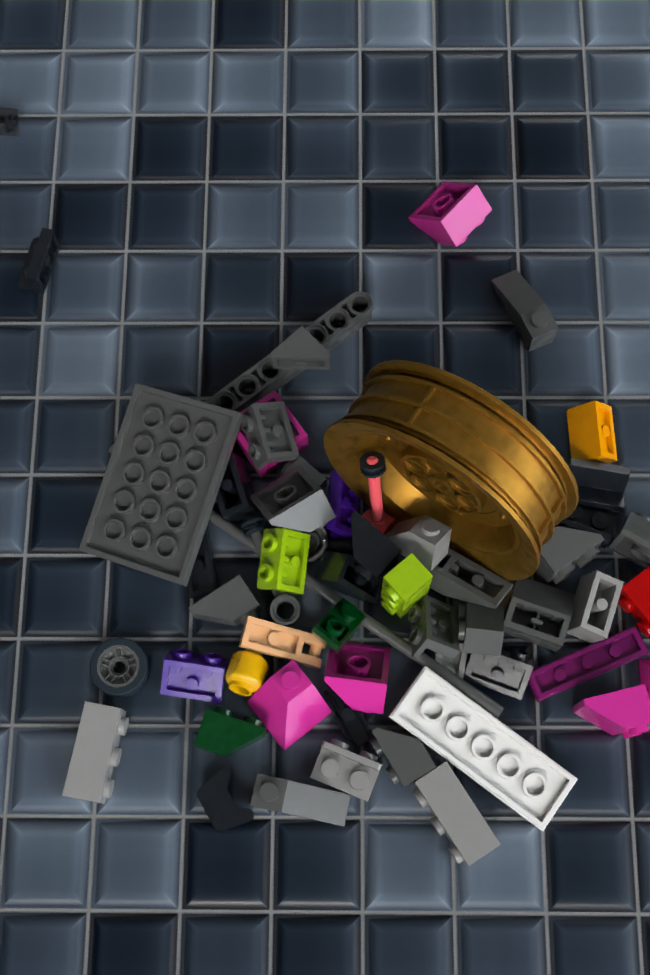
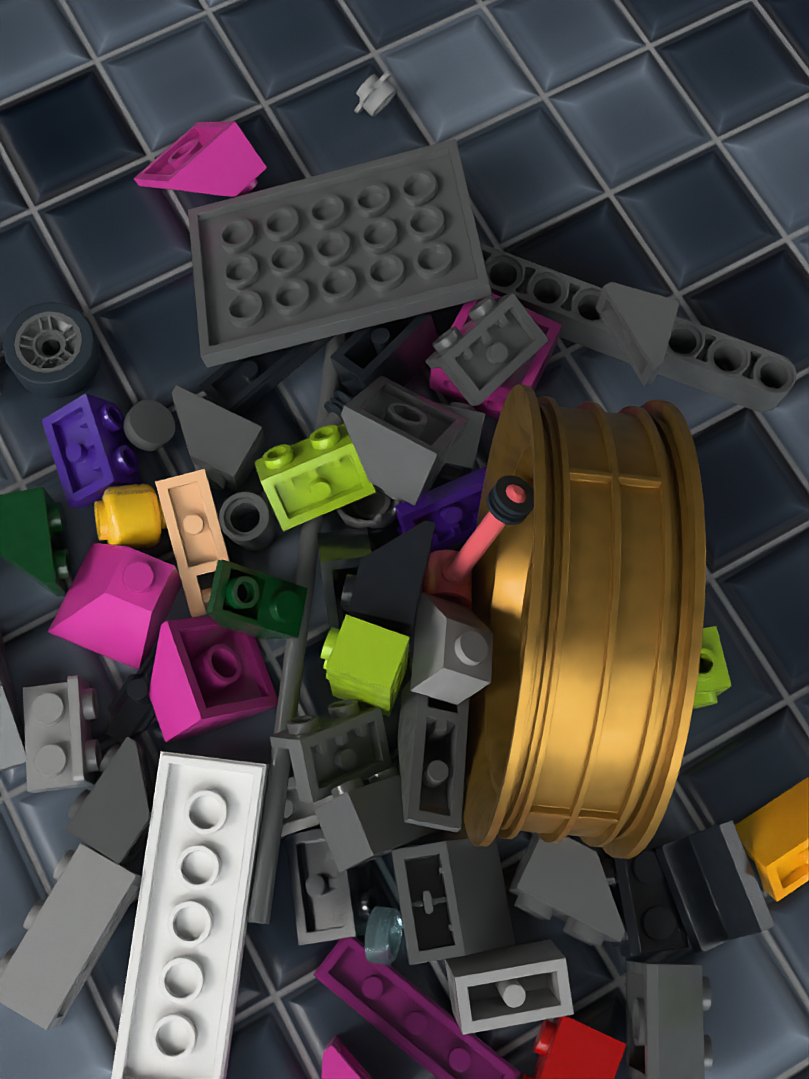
camera: 55 degrees right, 0 degrees up
(54, 527) = (206, 160): none -> dark pink slope
(69, 410) = (375, 94): none -> light grey plate
(197, 636) = (149, 425): none -> dark grey tile
(539, 654) = (383, 935): none -> clear light blue tile

